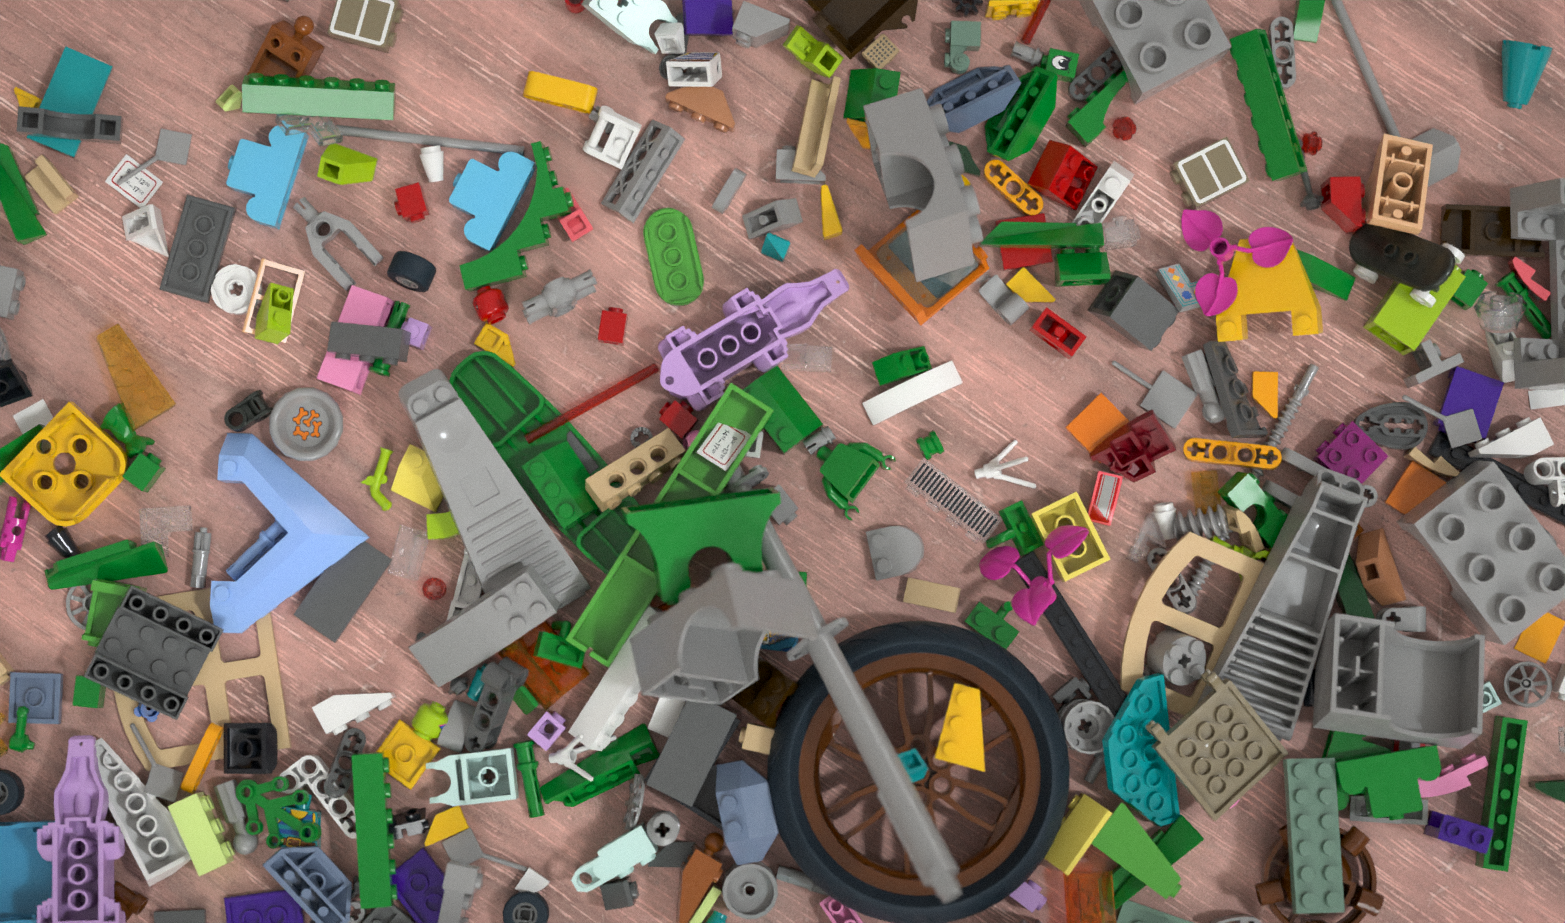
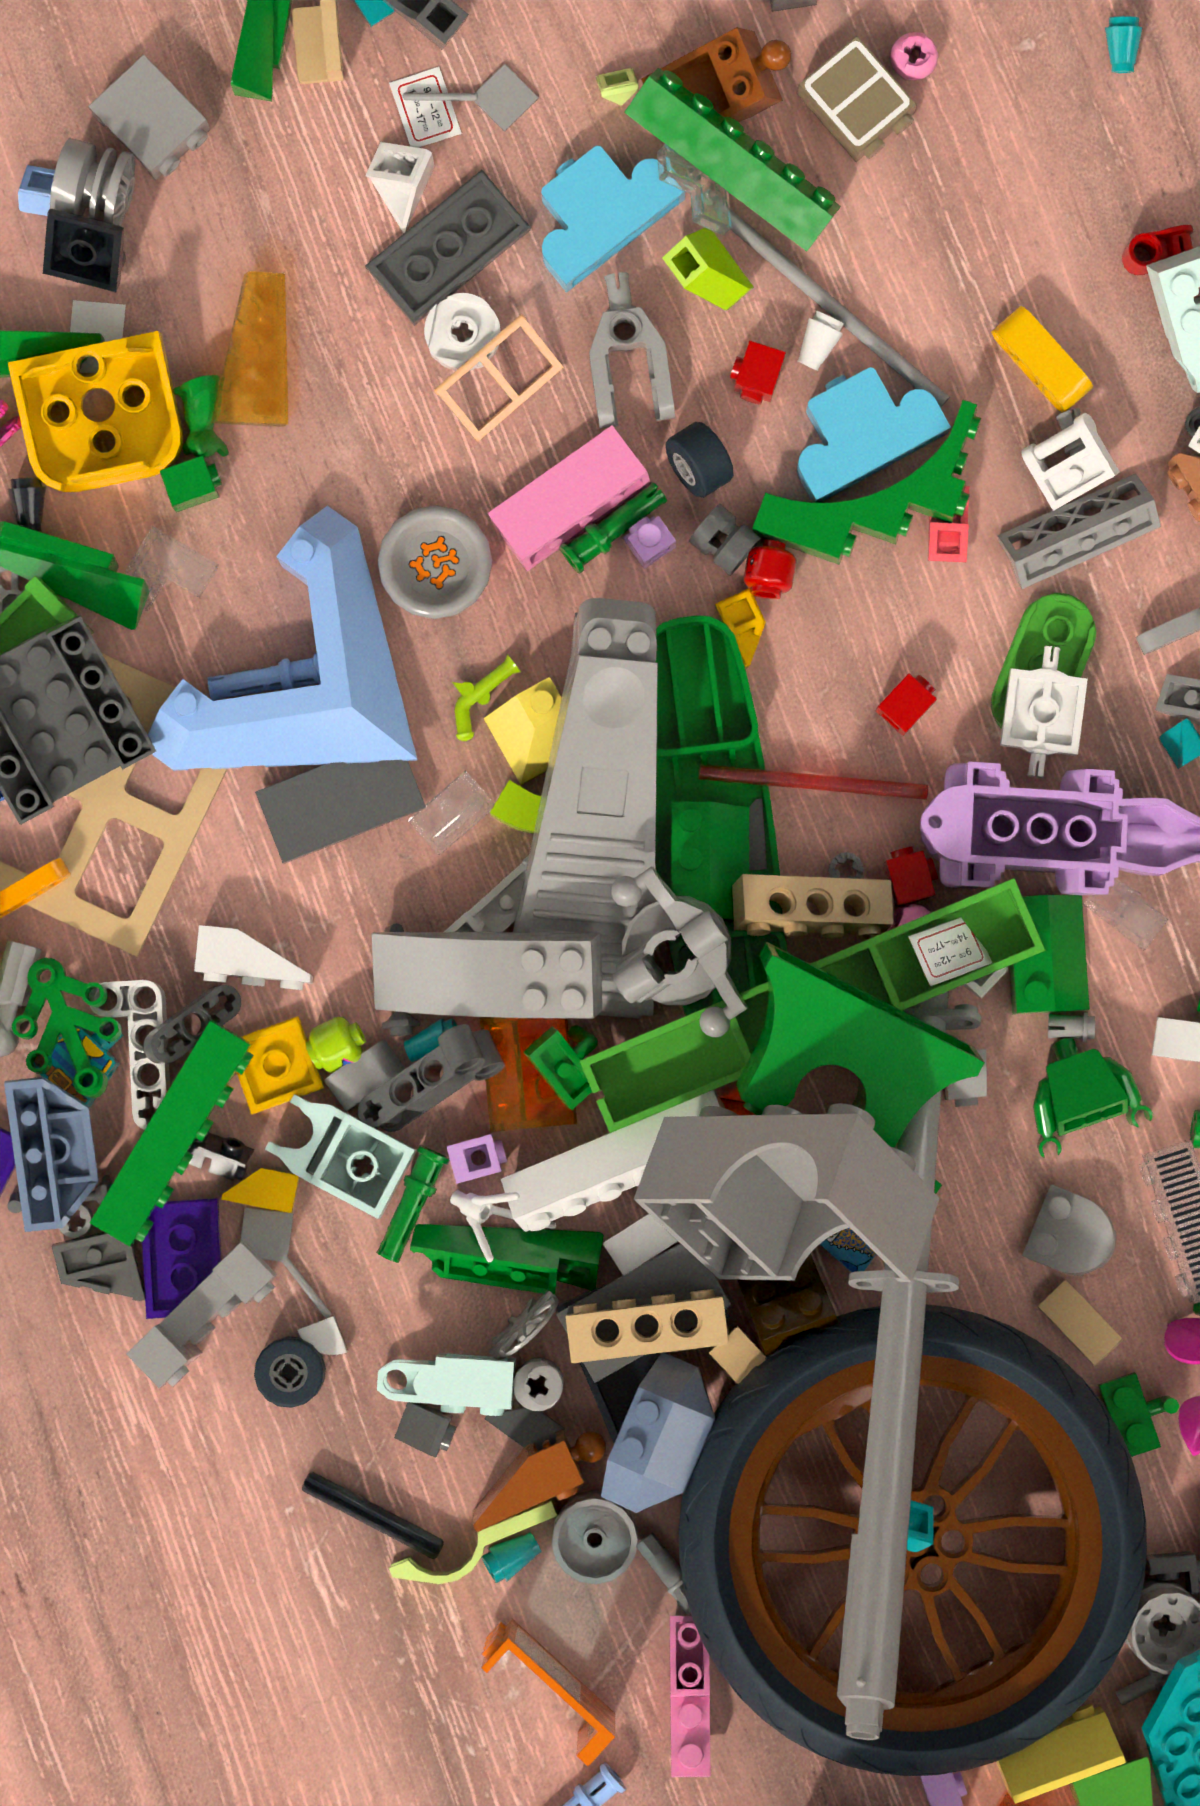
camera: 40 degrees right, 0 degrees up
(200, 558) = (186, 640): light grey piece -> none
(249, 411) = (374, 497): pearl dark grey piece -> none
(250, 748) = (86, 923): black slope -> none
(275, 314) = (490, 396): lime slope -> none
(368, 343) = (585, 513): dark grey brick -> none
(438, 582) = (464, 877): clear red bush -> none
(463, 305) = (734, 549): none -> dark grey wheel
(525, 700) = (473, 1101): green slope -> none
(559, 296) = (866, 619): light grey piece -> none
(583, 525) = (667, 919): none -> light grey piece
(673, 789) = (587, 1346): none -> tan brick
(689, 281) = (1043, 712): none -> white plate
(962, 729) = (1009, 1525): yellow wing -> none

